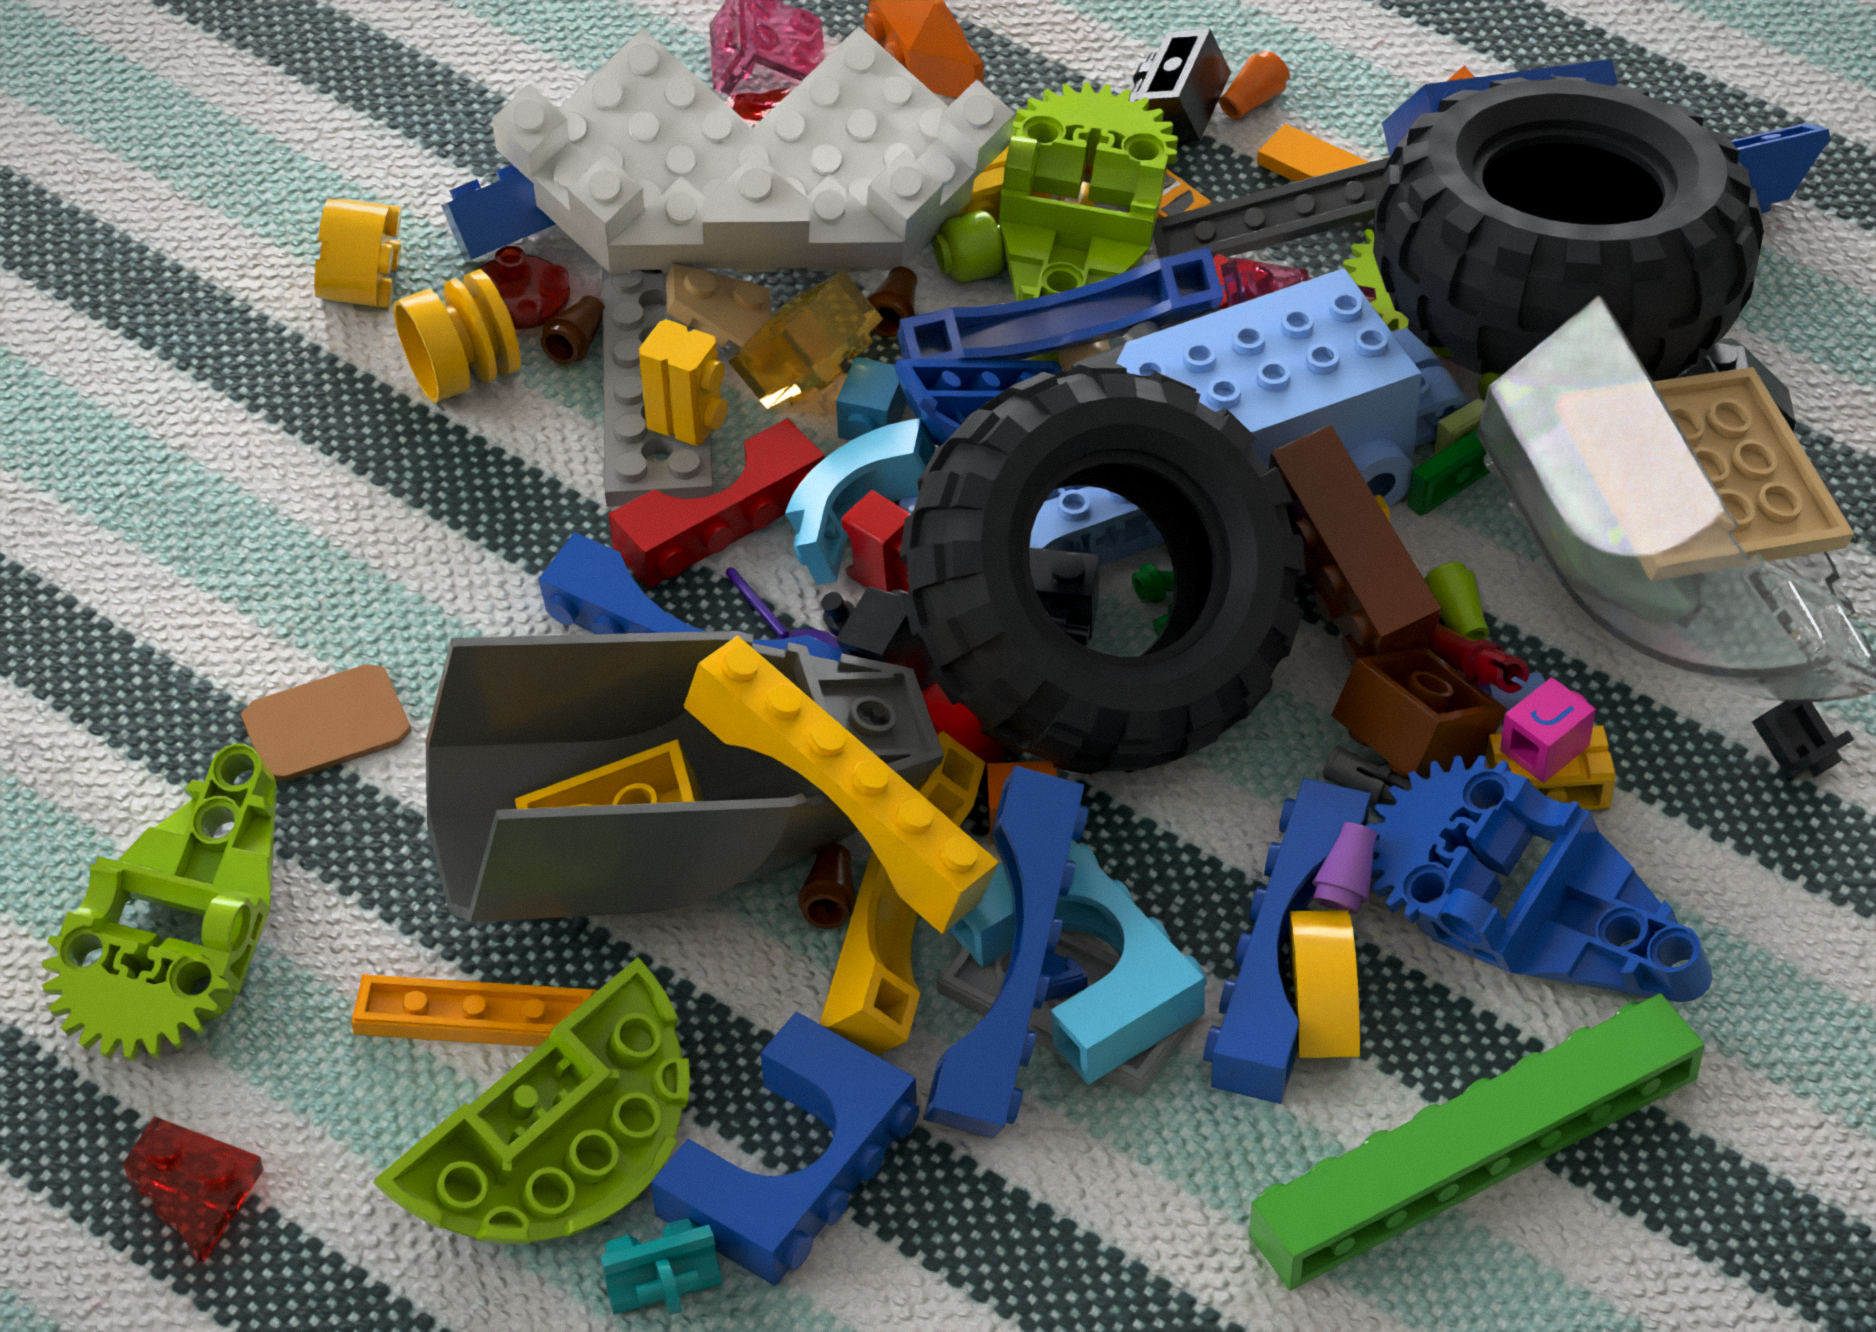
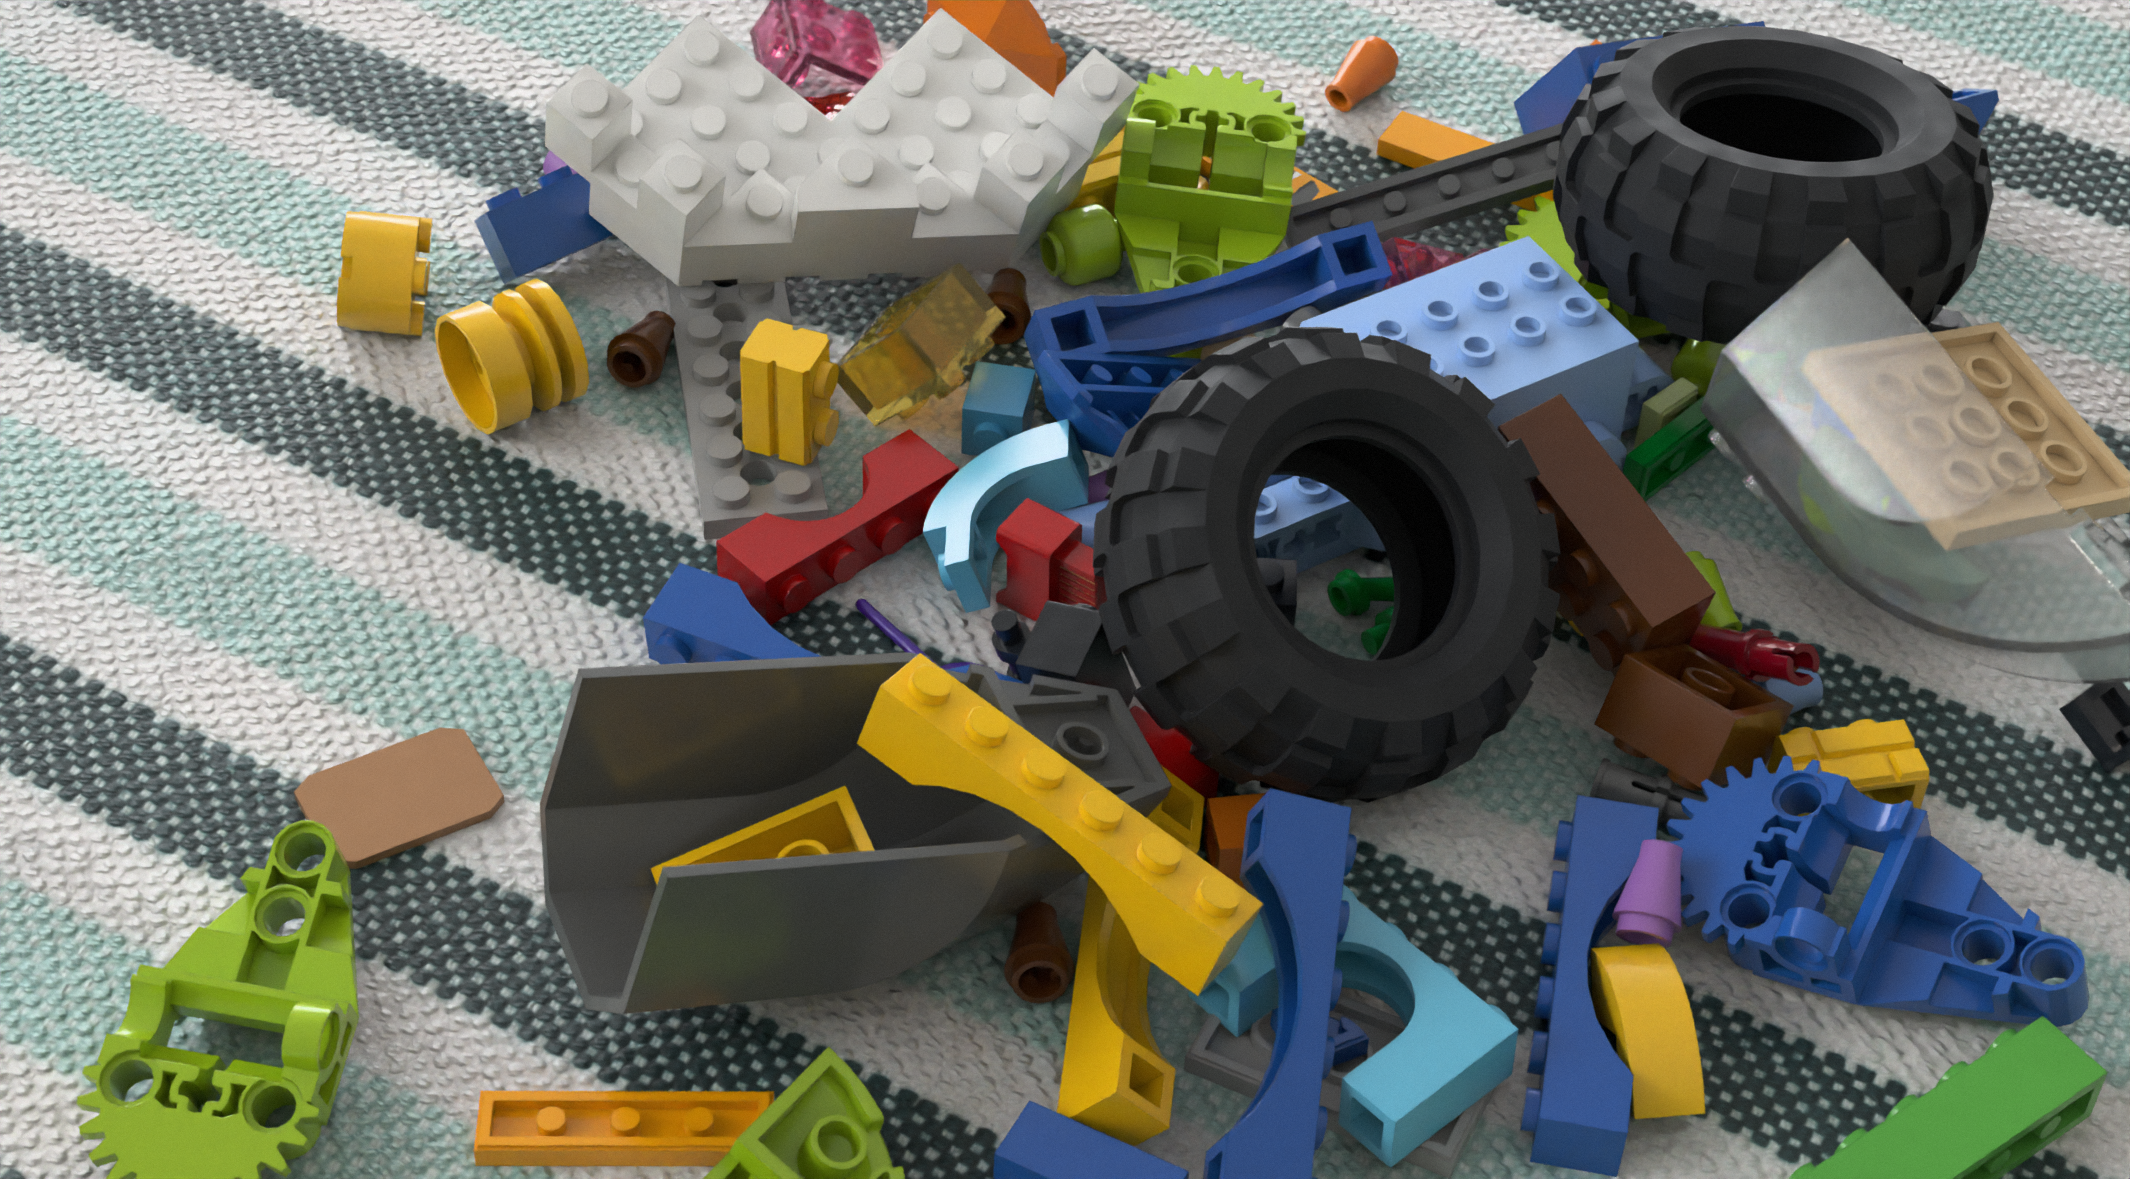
camera: 10 degrees left, 5 degrees down
(528, 286) = (596, 305): clear red dish -> none
(717, 303) = (807, 307): tan wing -> none
(1183, 81) = (1289, 58): black brick -> none
(1547, 729) = (1850, 723): dark pink brick -> none

